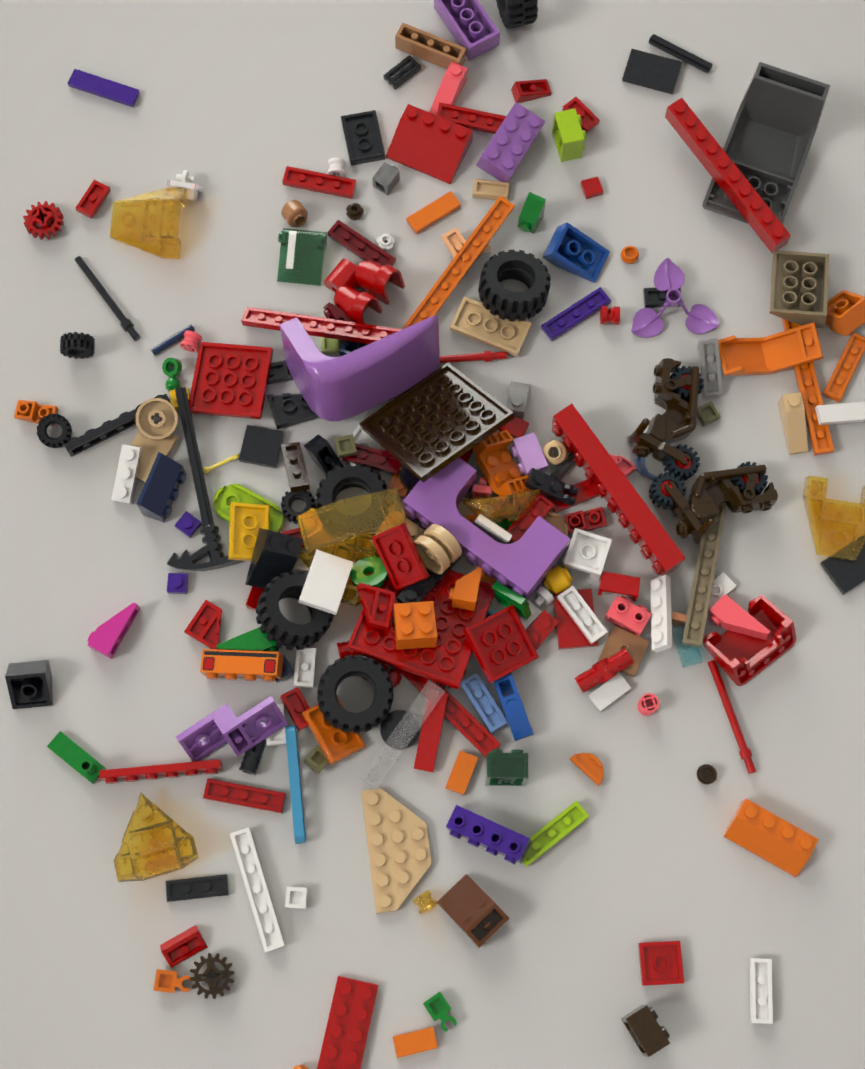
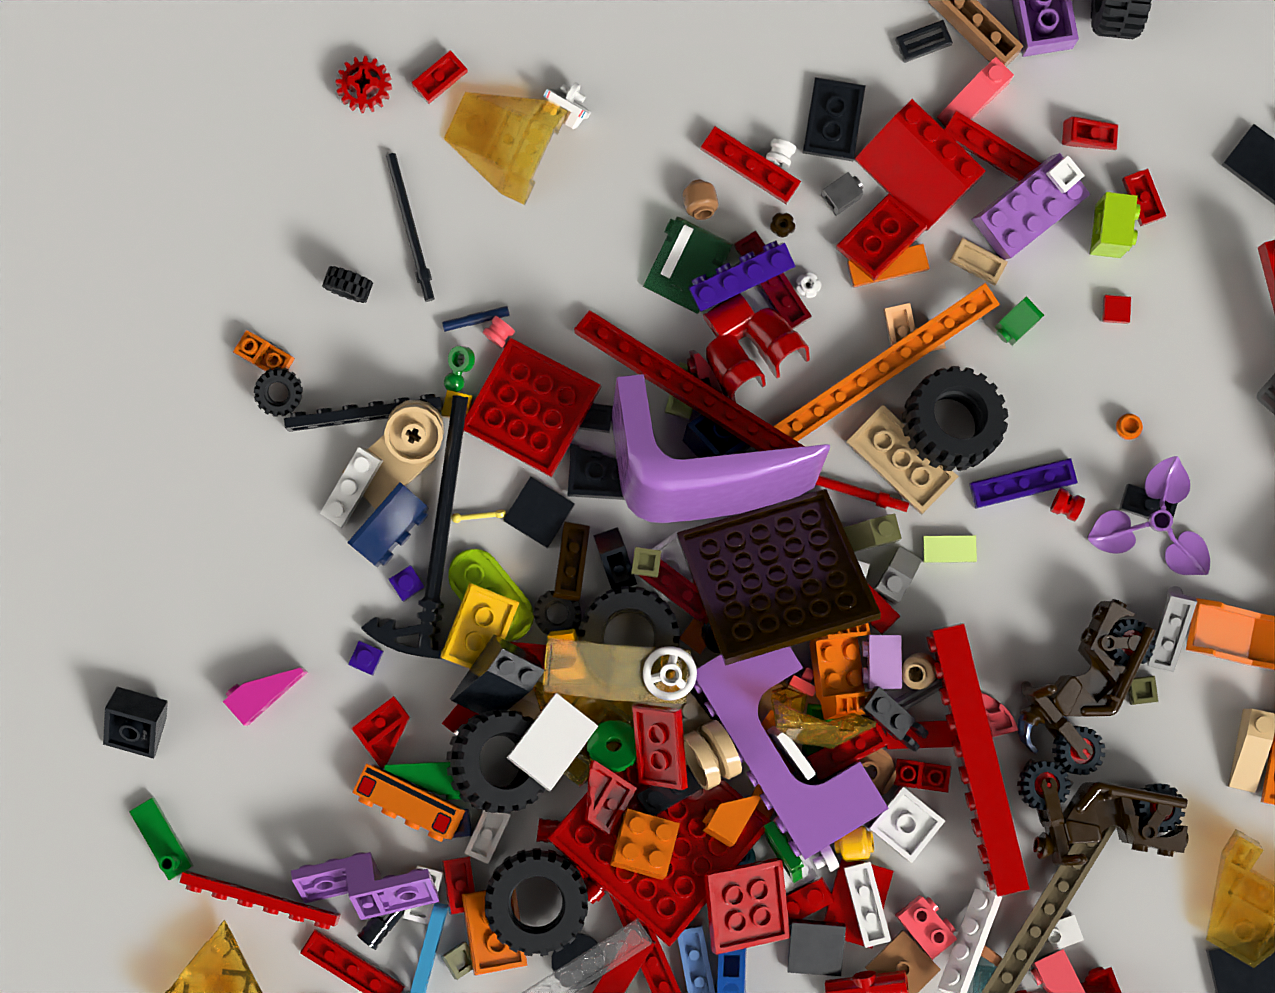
camera: 20 degrees right, 10 degrees up
(339, 247) = (742, 276): none -> dark purple brick
(387, 497) = (685, 687): none -> white piece
(422, 195) = (881, 237): none -> red tile
(492, 376) = (873, 532): none -> olive slope
(524, 112) = (1065, 174): none -> white tile
(544, 371) = (949, 549): none -> yellowish green tile
(559, 657) = (816, 947): none -> black tile
(576, 252) = (1057, 398): blue slope -> none
(619, 584) = (930, 883): red hinge -> none

